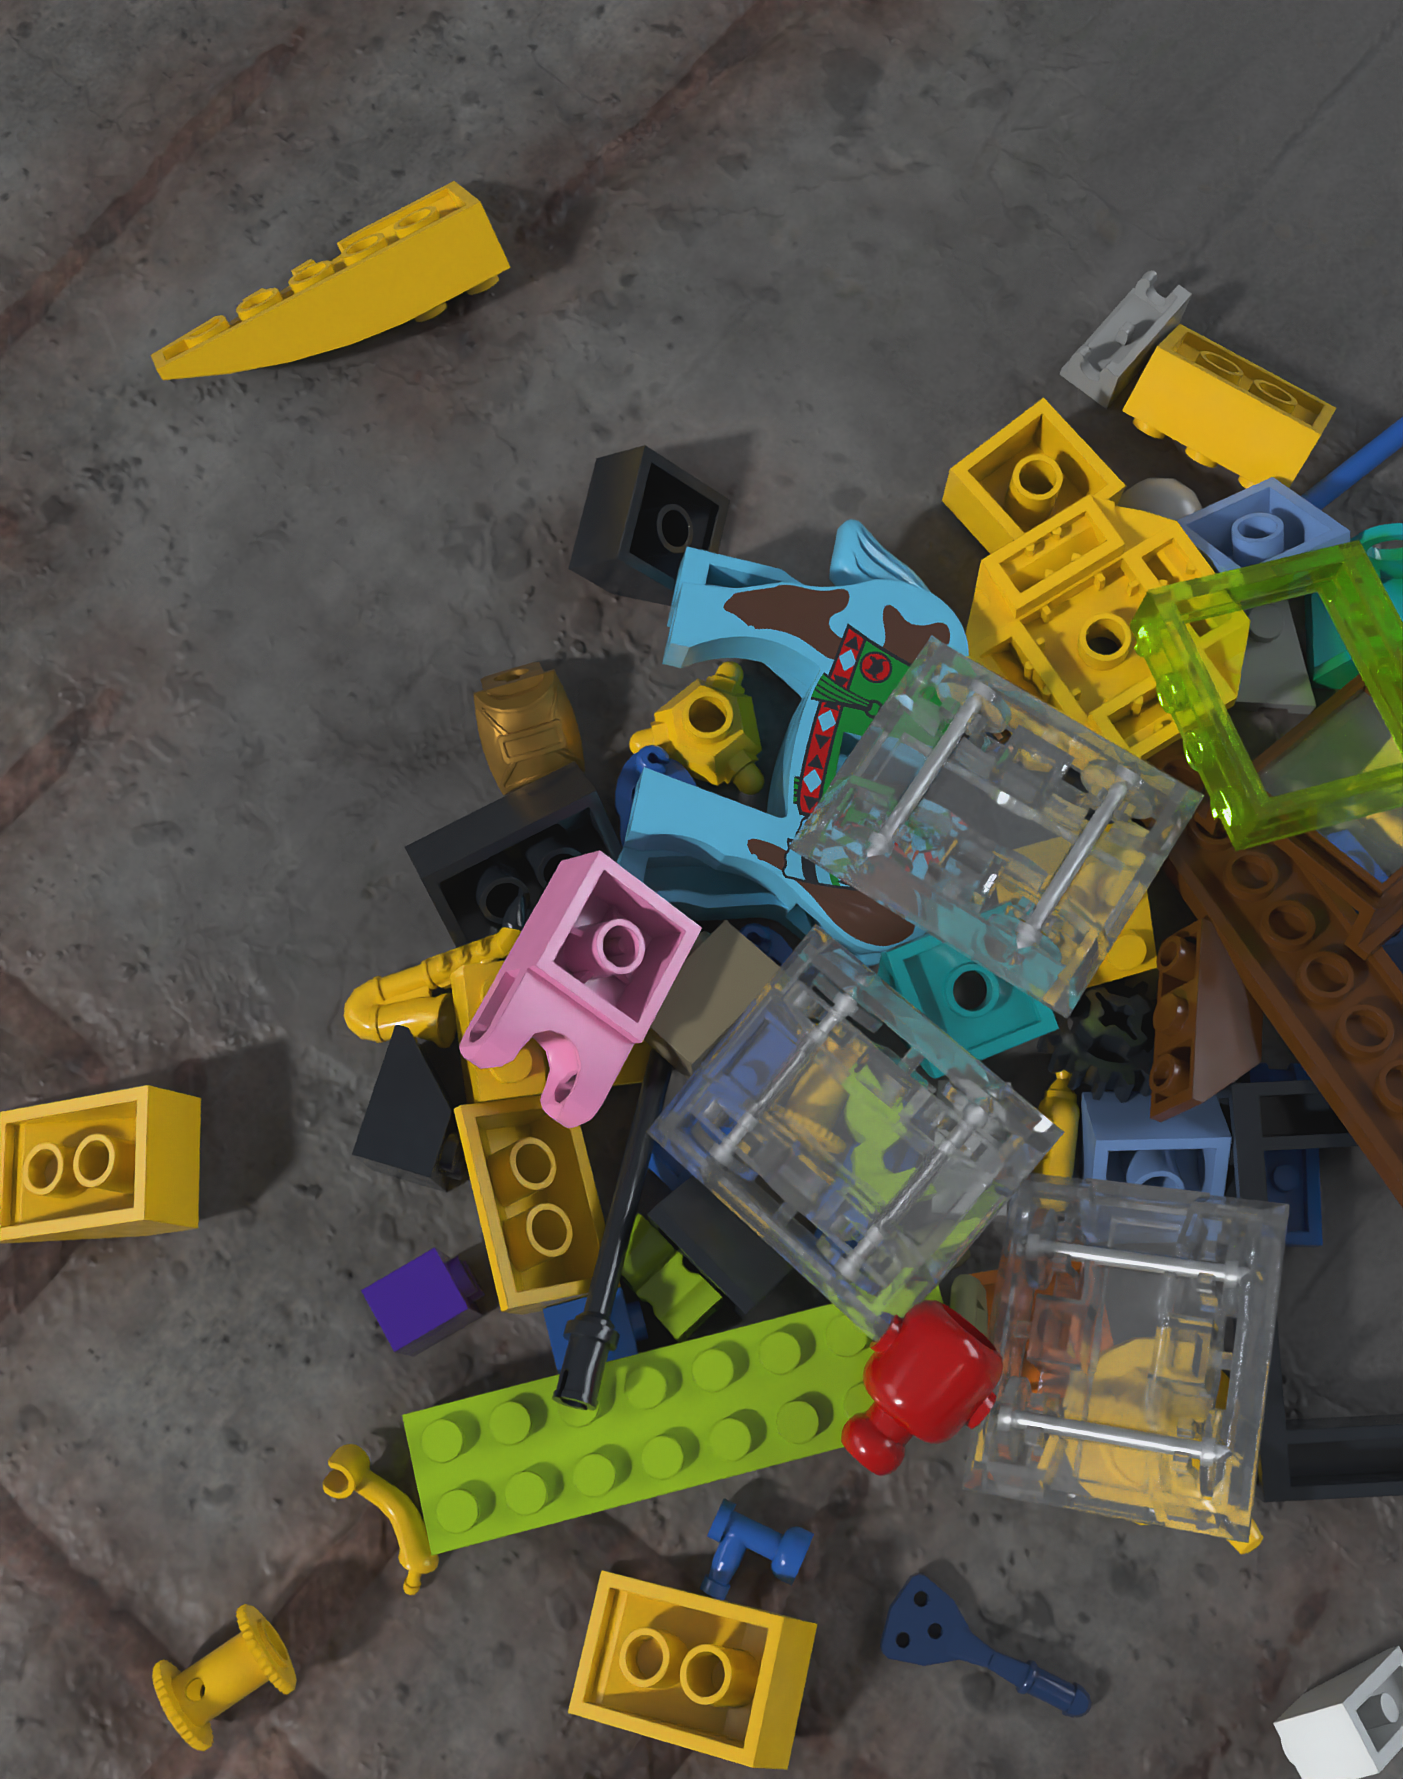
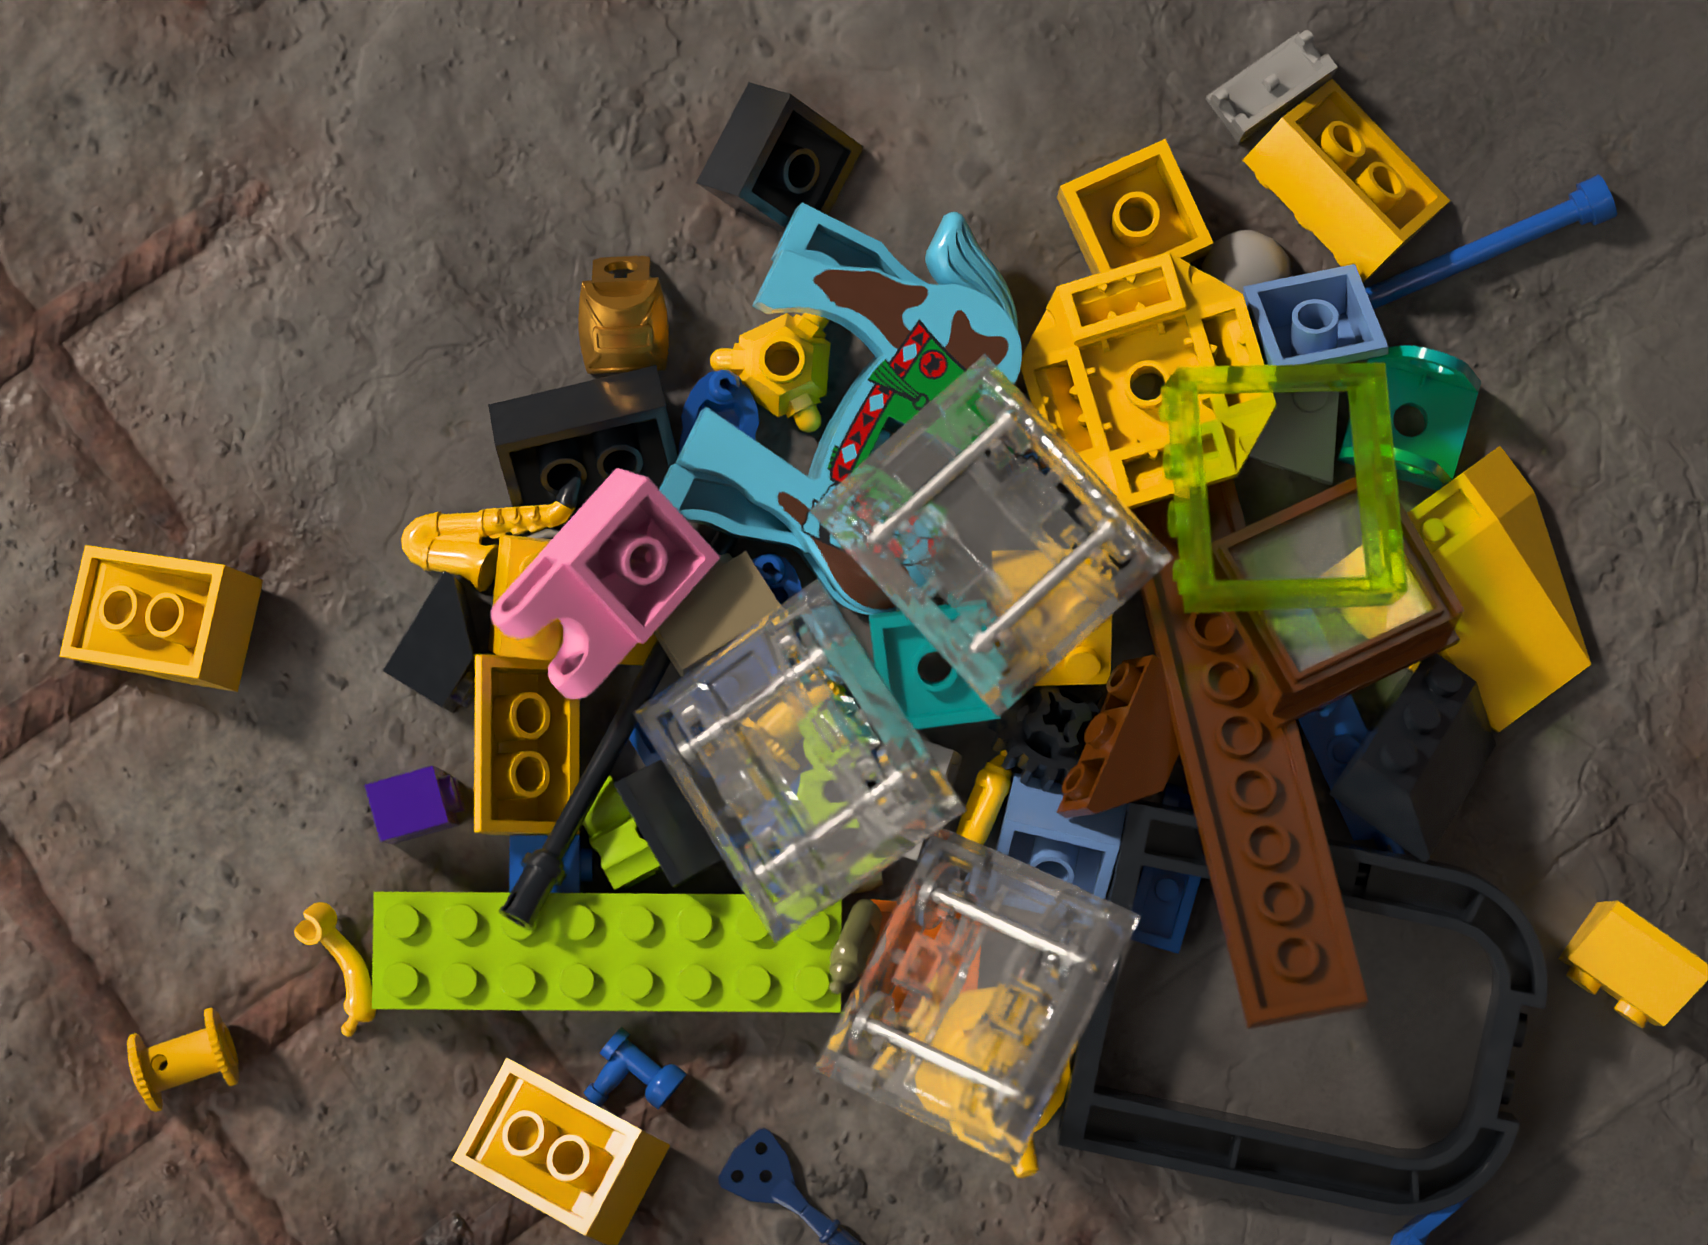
camera: 15 degrees right, 10 degrees up
(925, 1382) = (799, 977): red piece -> none

